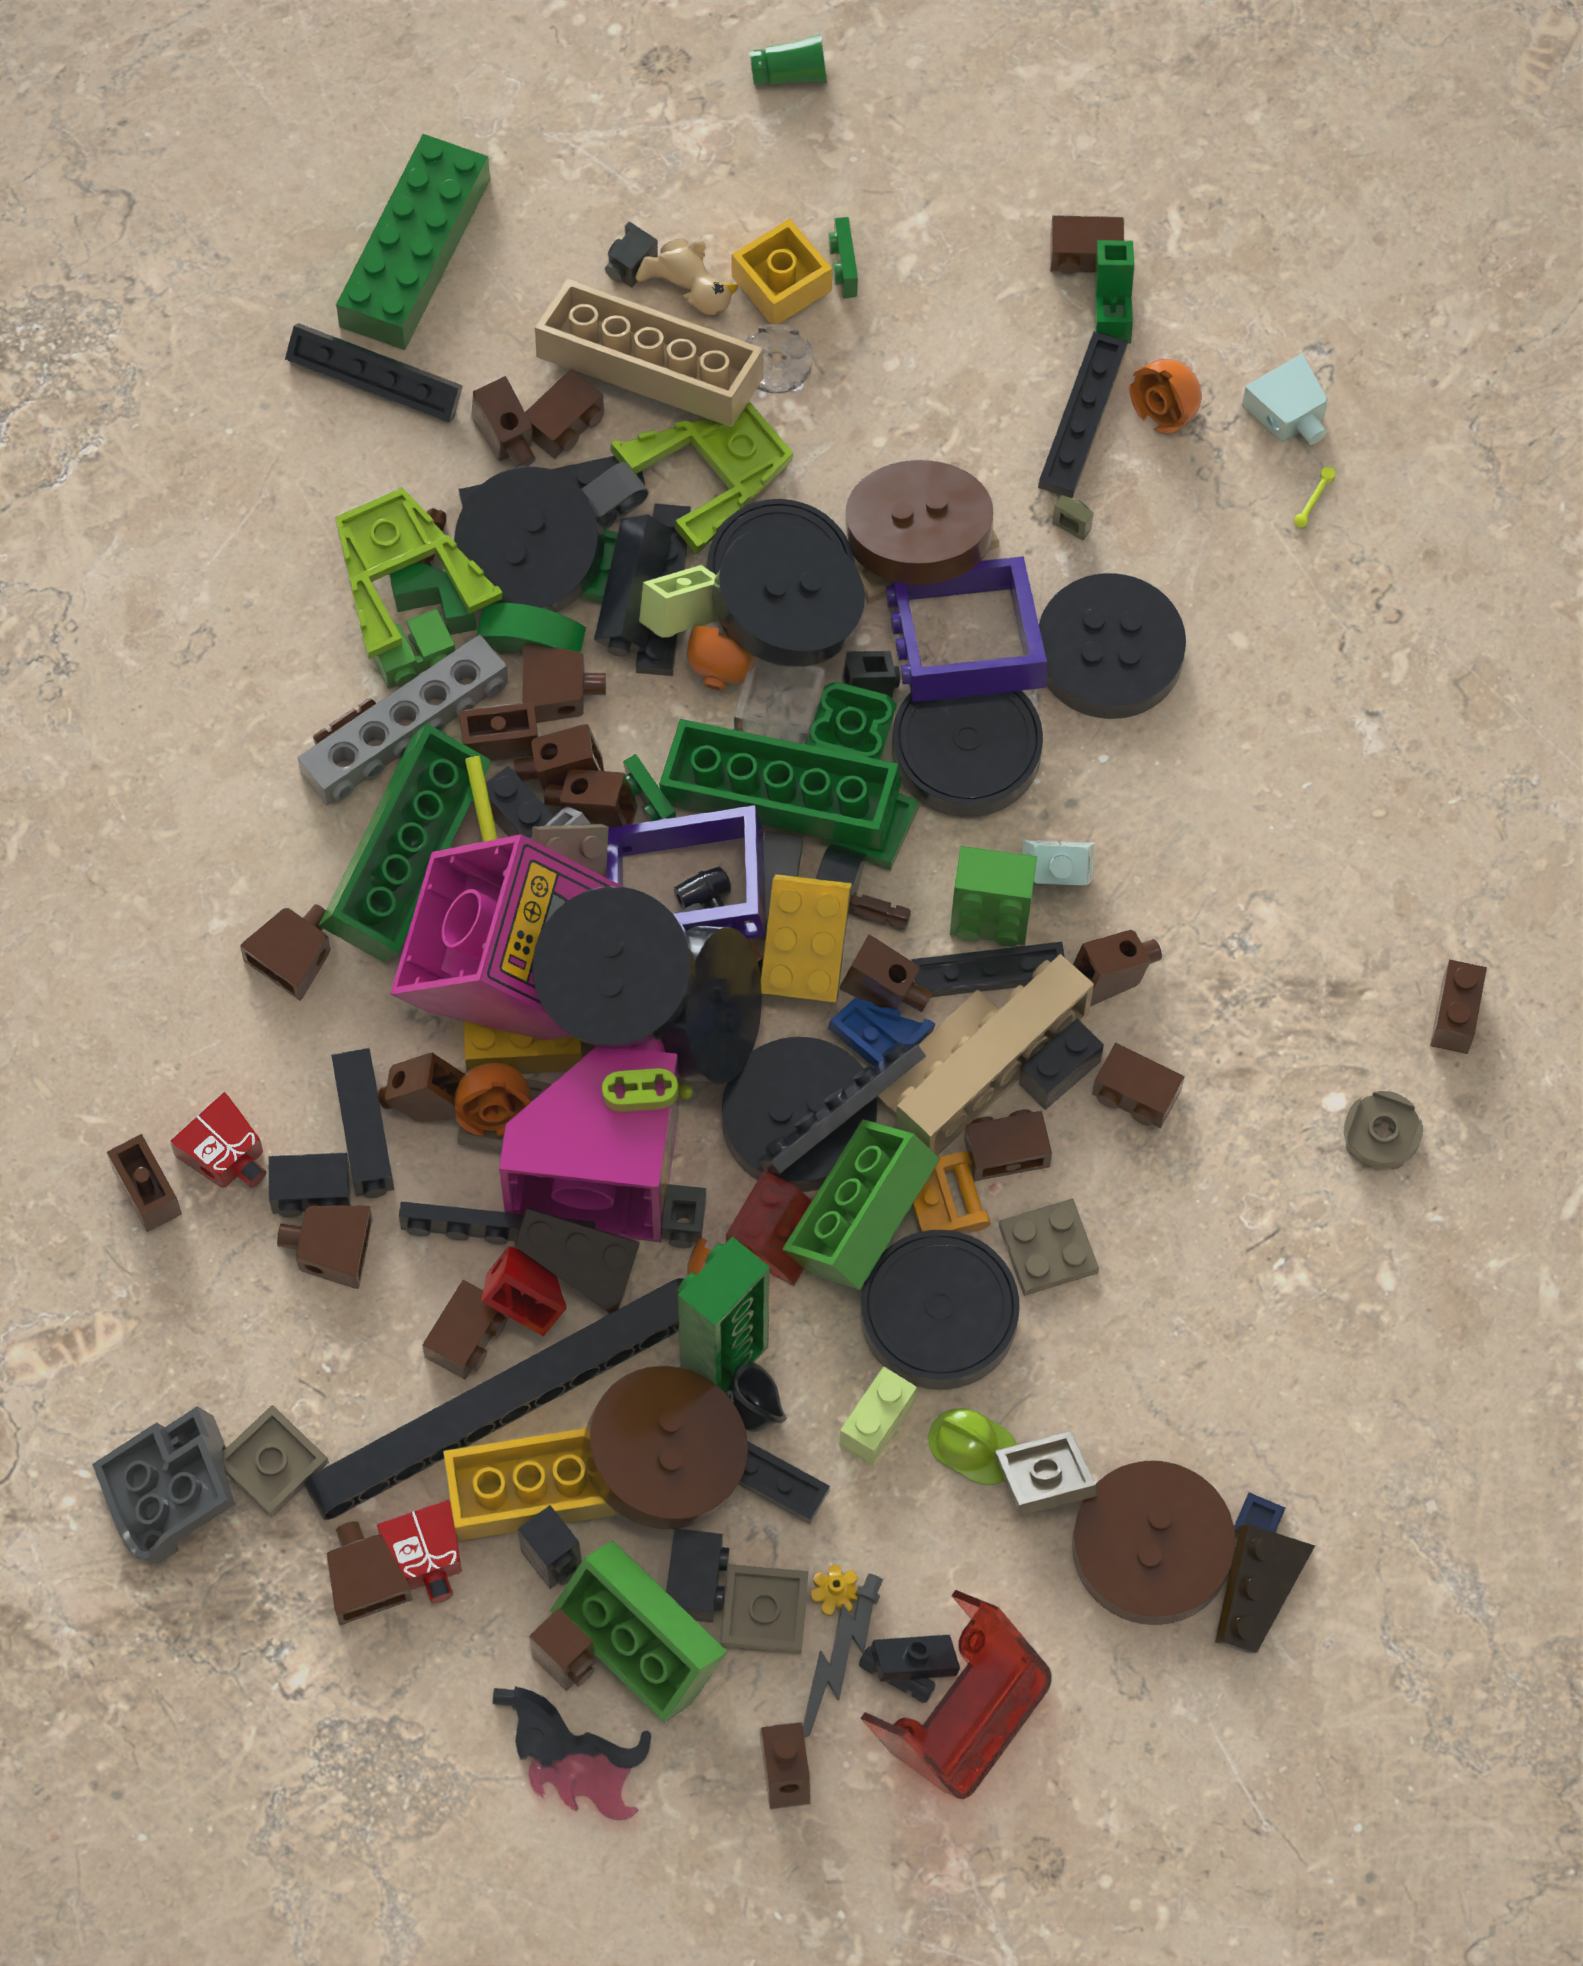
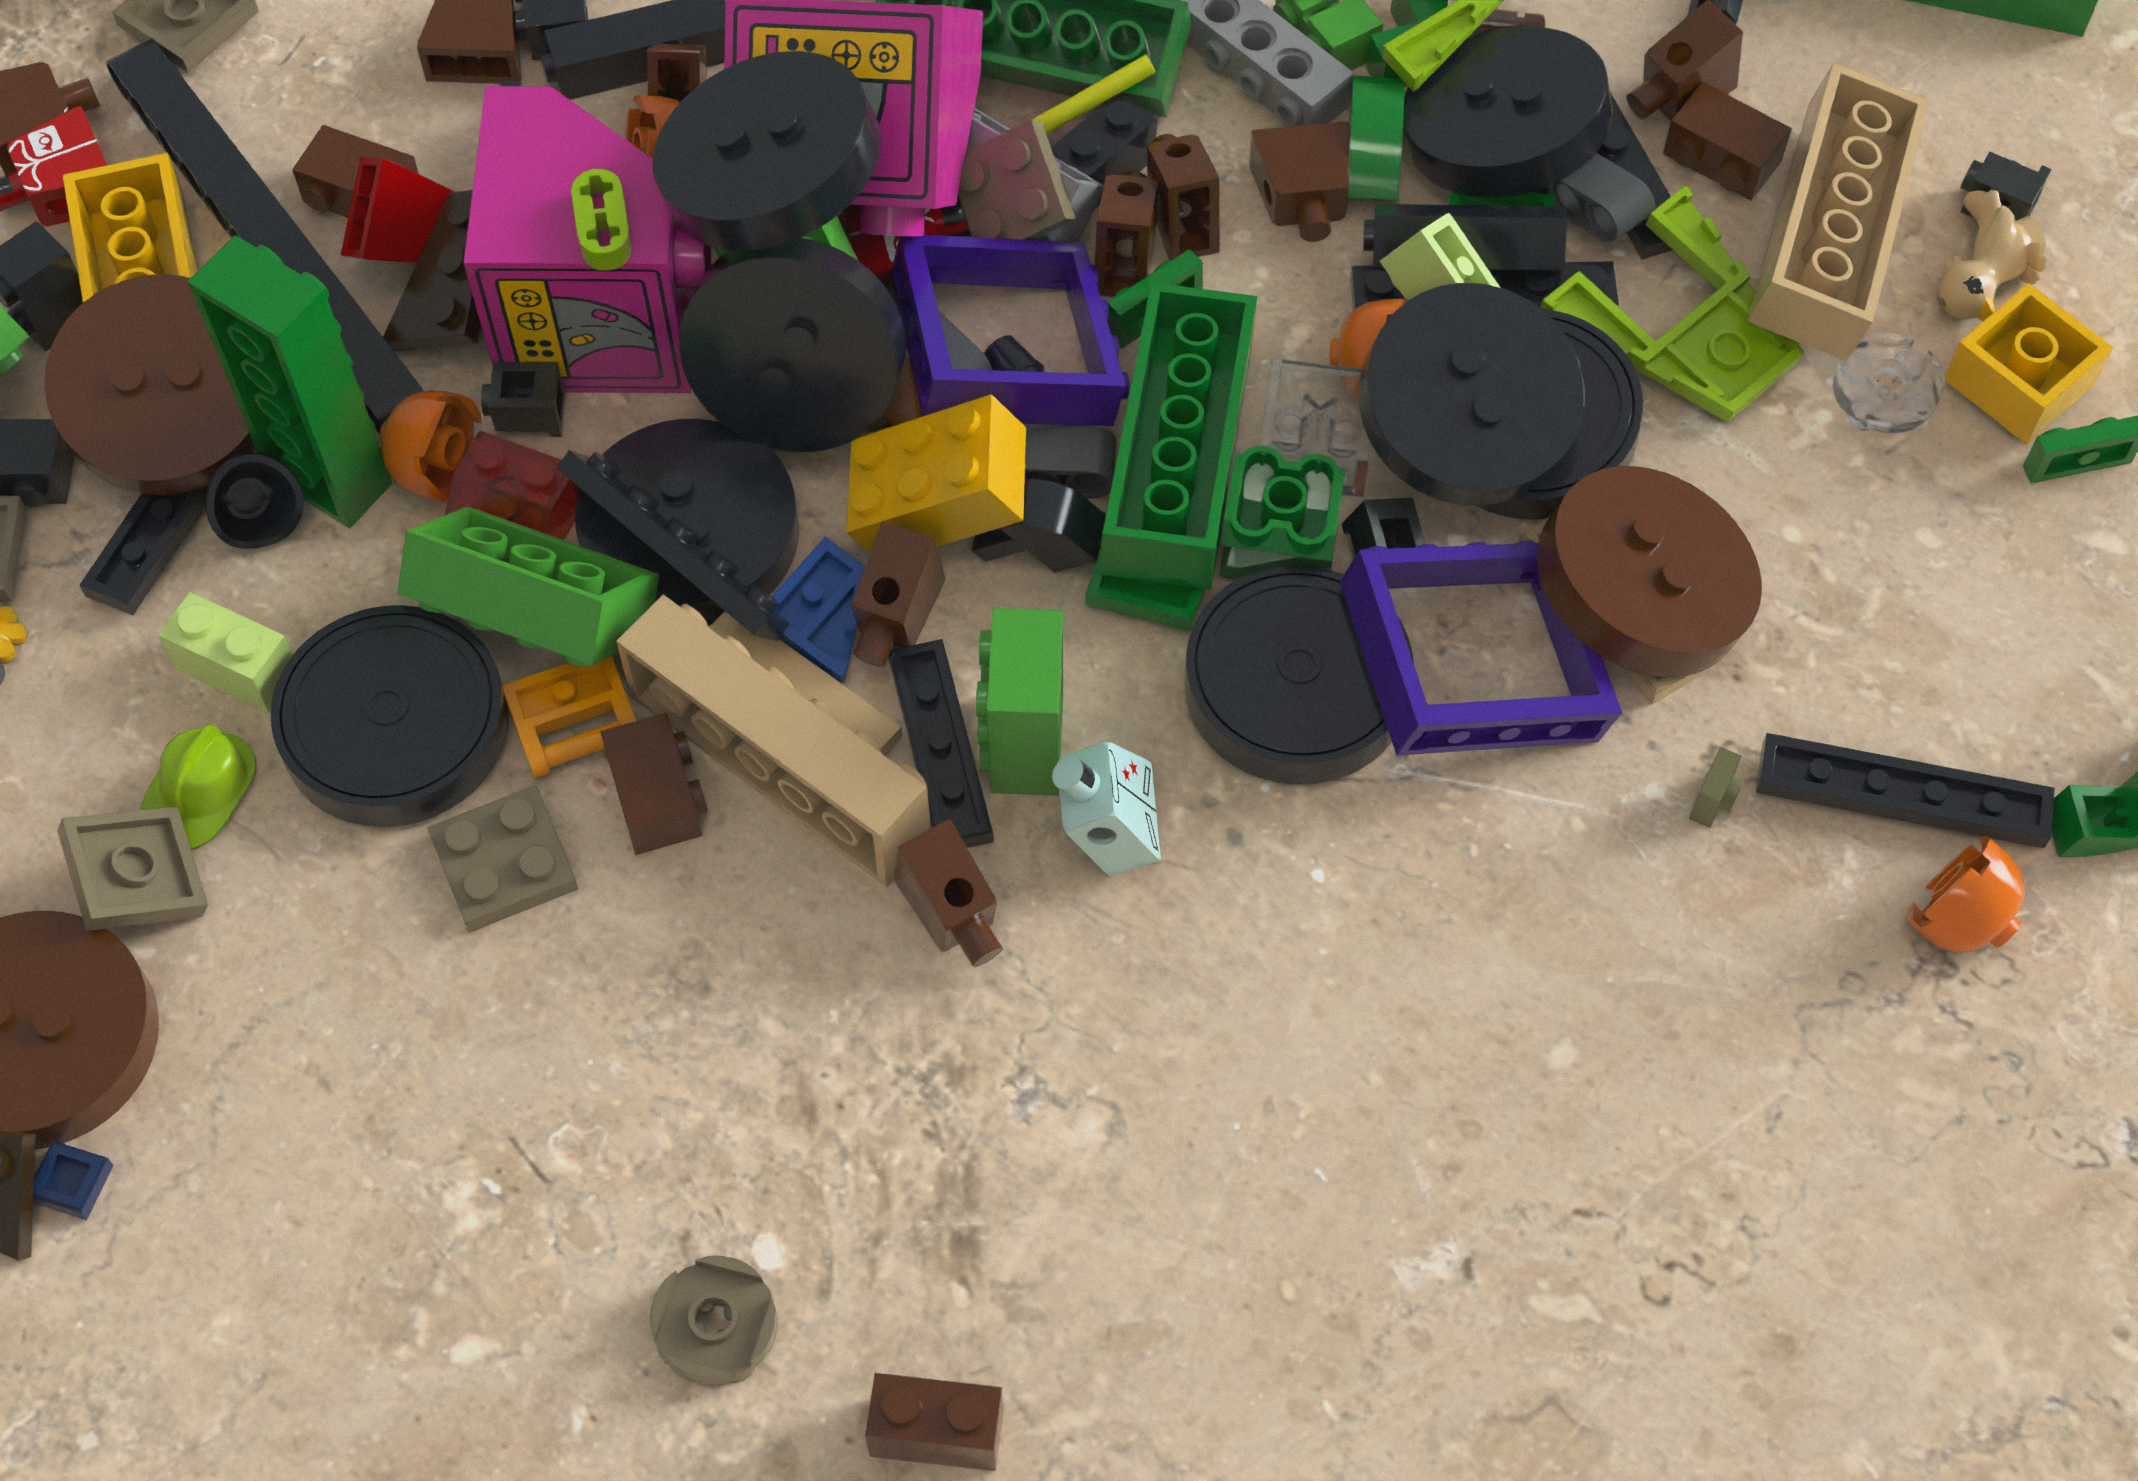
camera: 85 degrees right, 5 degrees down
(500, 730) = (1214, 111): reddish brown brick -> none
(880, 911) = (1018, 581): reddish brown axle -> none
(1061, 1064) = (785, 840): black brick -> none
(1112, 645) = (1505, 860): black brick -> none
(1137, 1086) = (759, 950): reddish brown brick -> none
(1288, 401) = (2012, 1090): light aqua torso -> none
(1327, 475) = (1893, 1168): neon yellow hinge -> none

